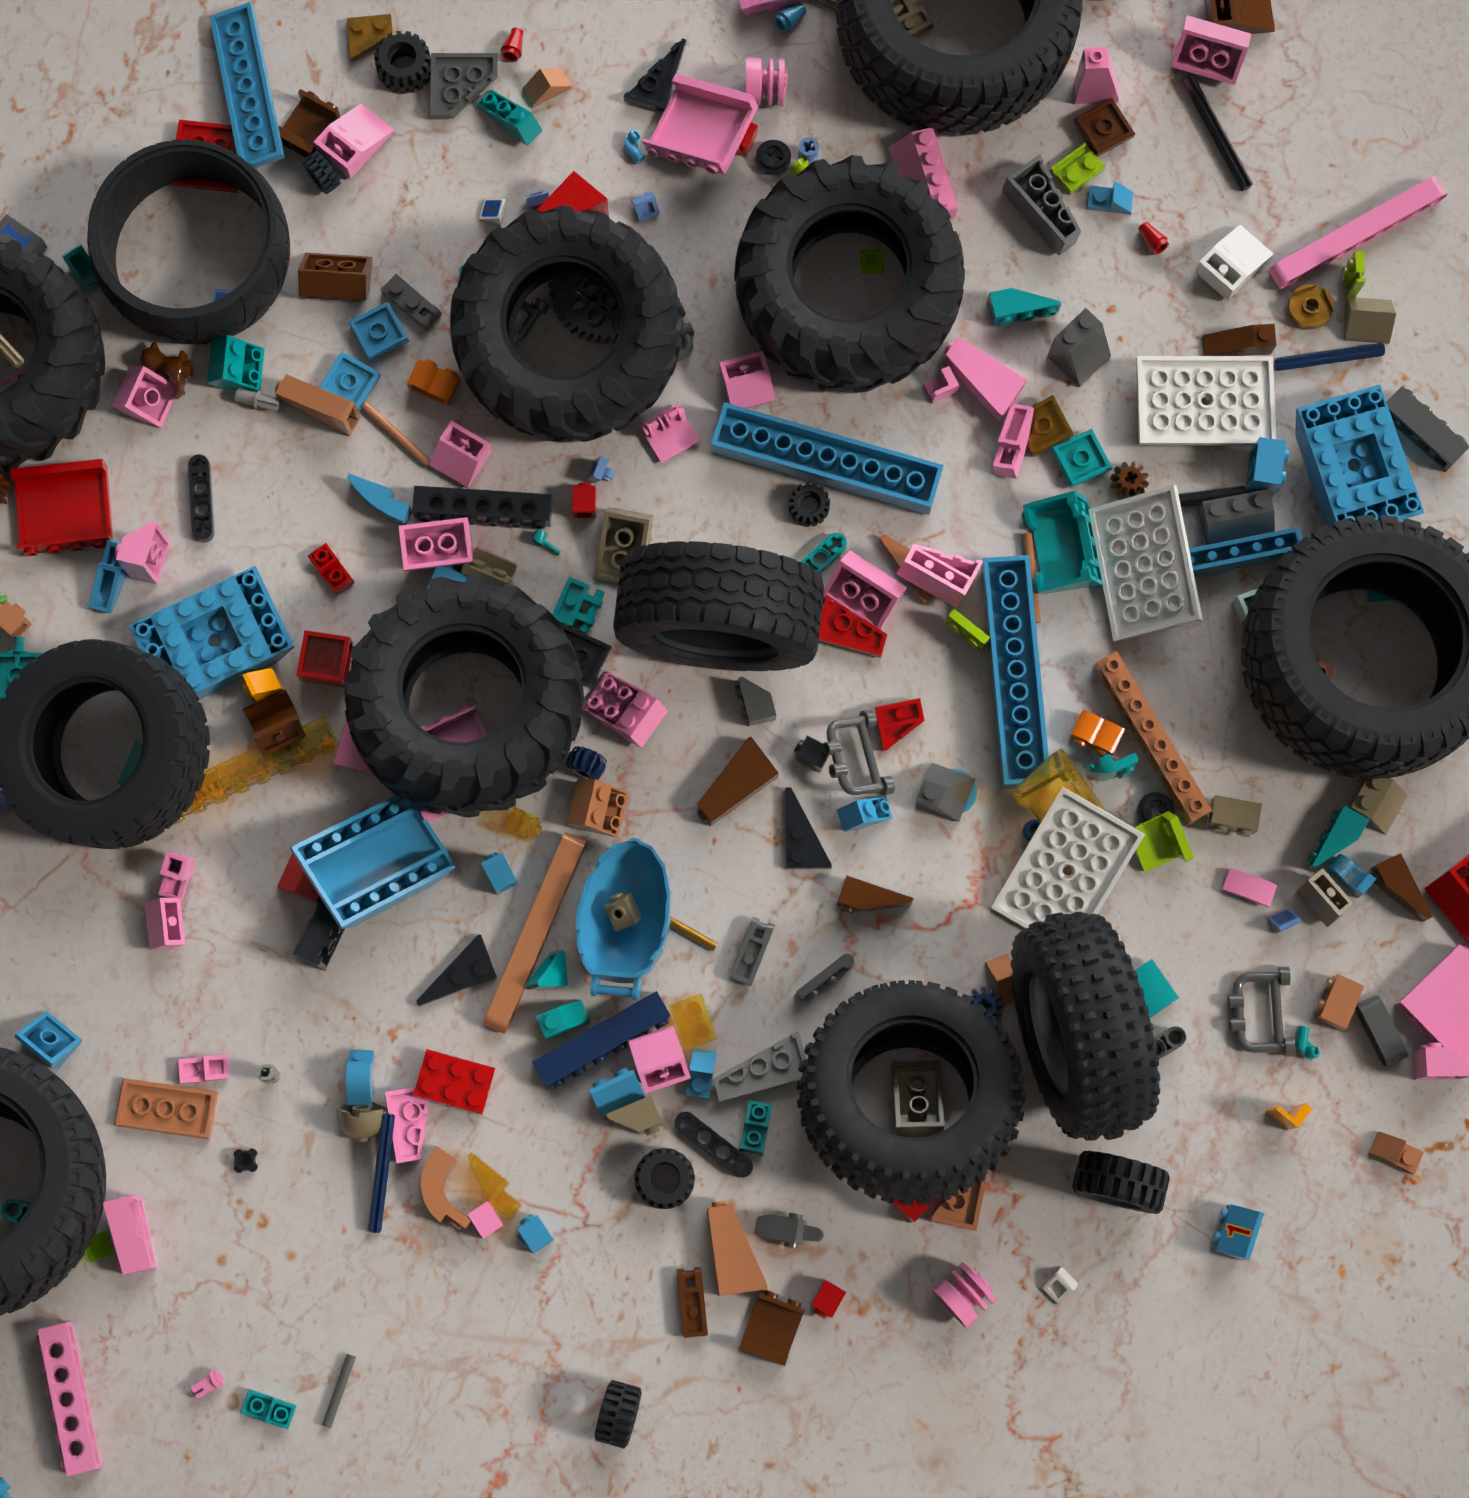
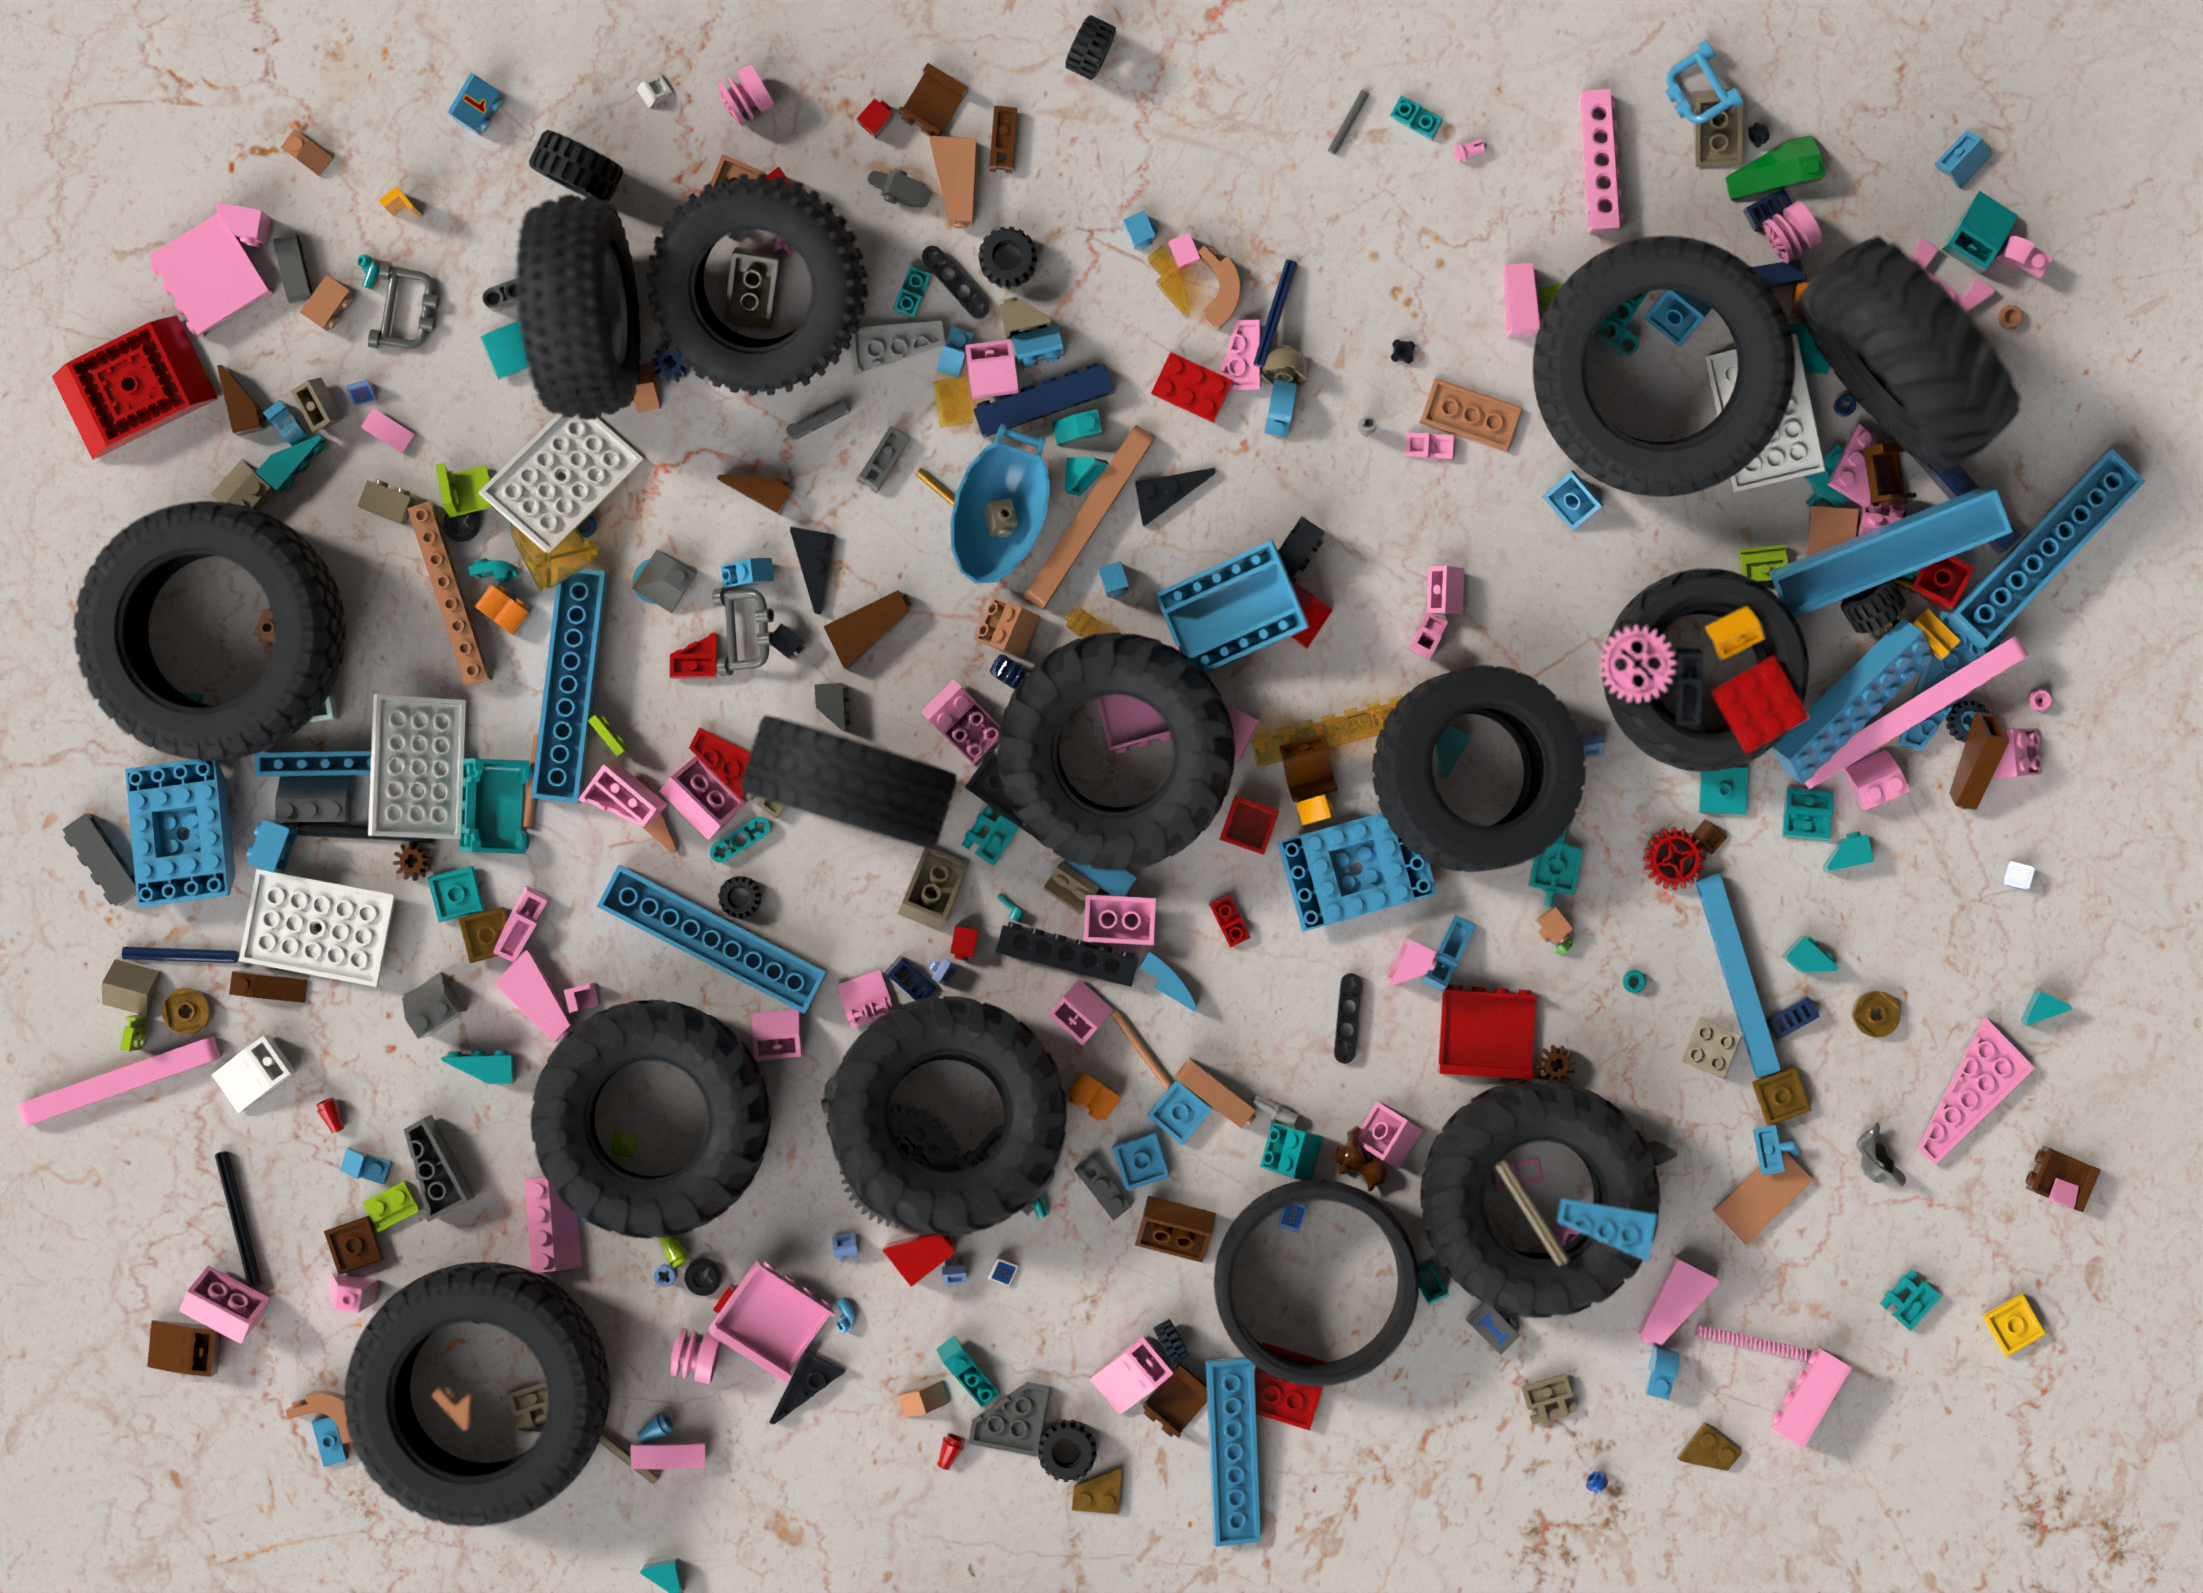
camera: 165 degrees left, 10 degrees up
(643, 465) = (893, 968): none -> dark blue slope

